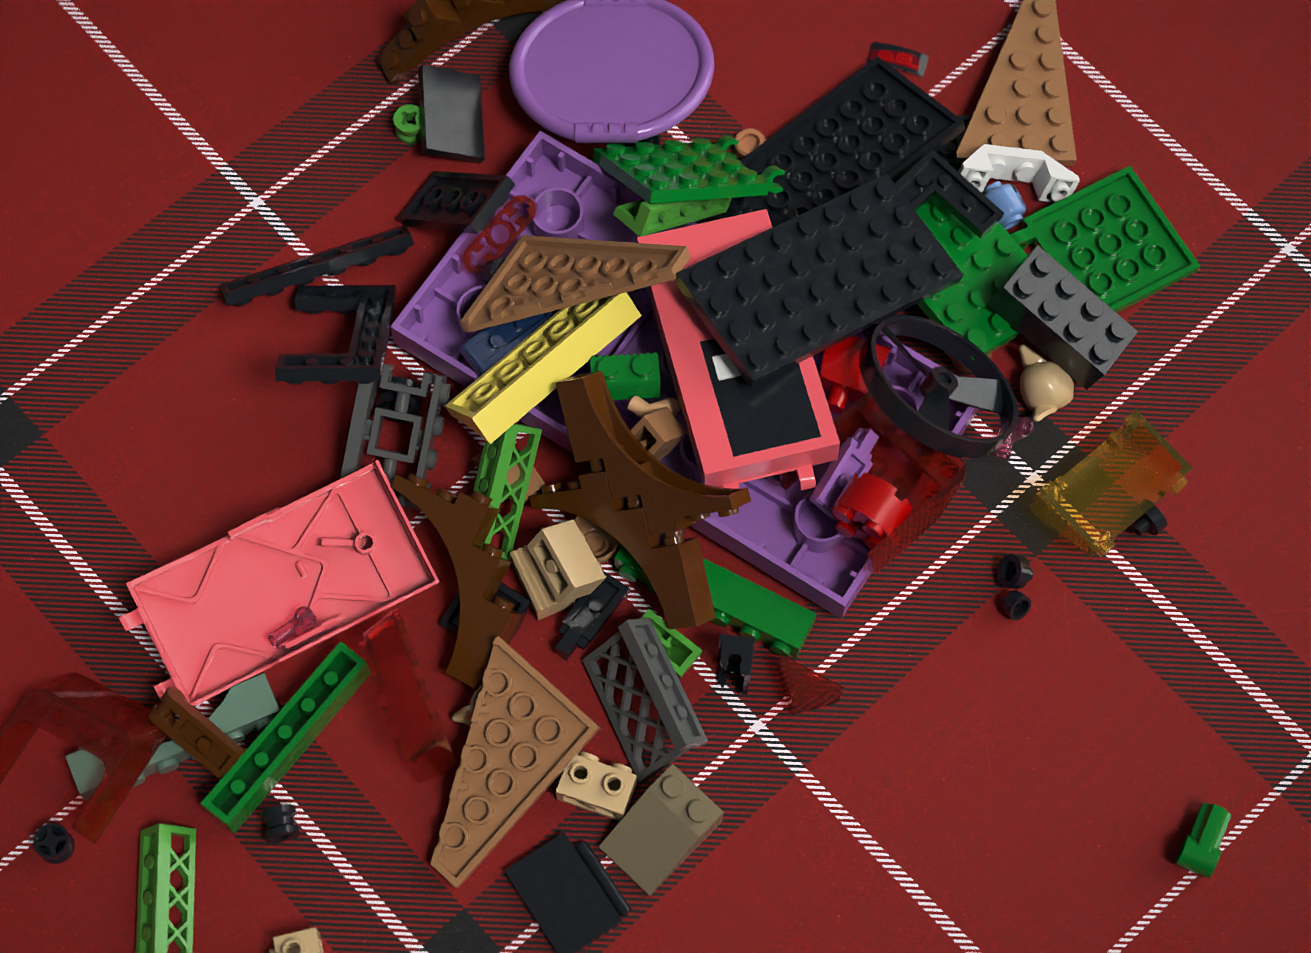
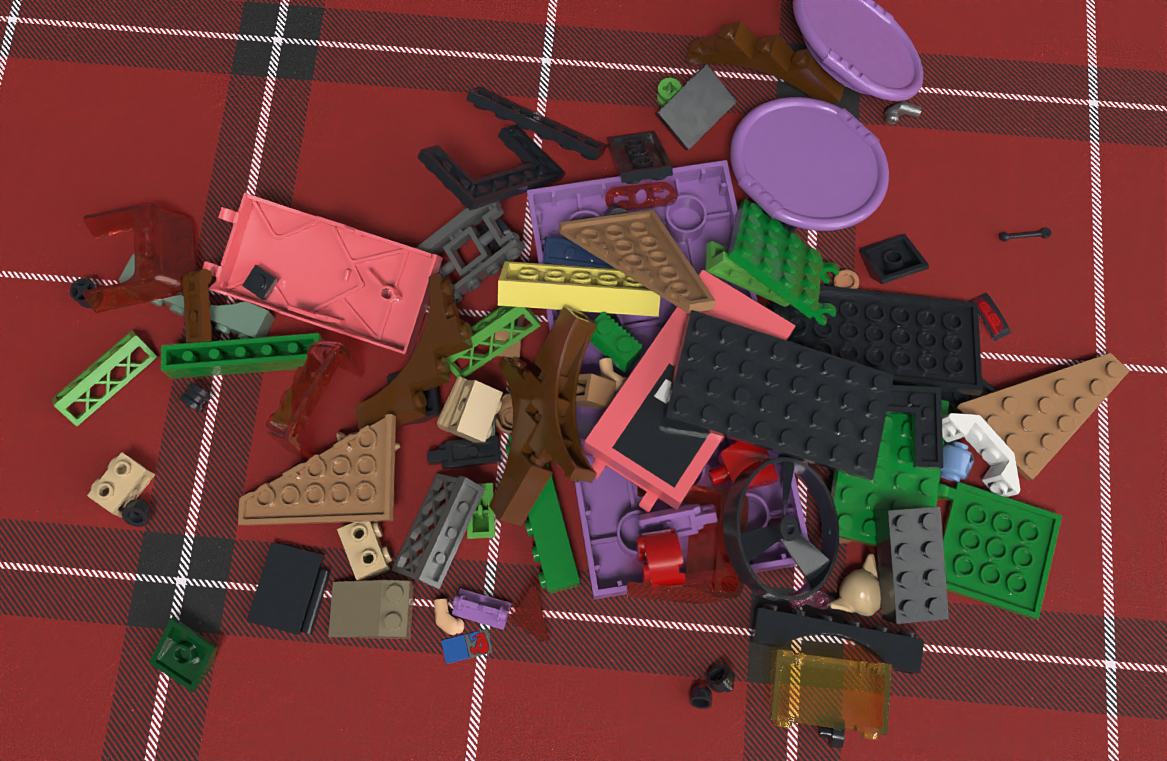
camera: 50 degrees right, 5 degrees up
(224, 657) = (260, 282): none -> black plate
(303, 621) = (313, 303): clear pink arm -> none
(735, 657) = (508, 562): black hinge -> none
(736, 771) = (445, 620): none -> light nougat arm
(755, 728) = (481, 608): none -> medium lavender hinge
(768, 86) = (892, 259): none -> black slope
(777, 775) = (466, 646): none -> sticker
(1014, 483) = (778, 628): none -> black arch

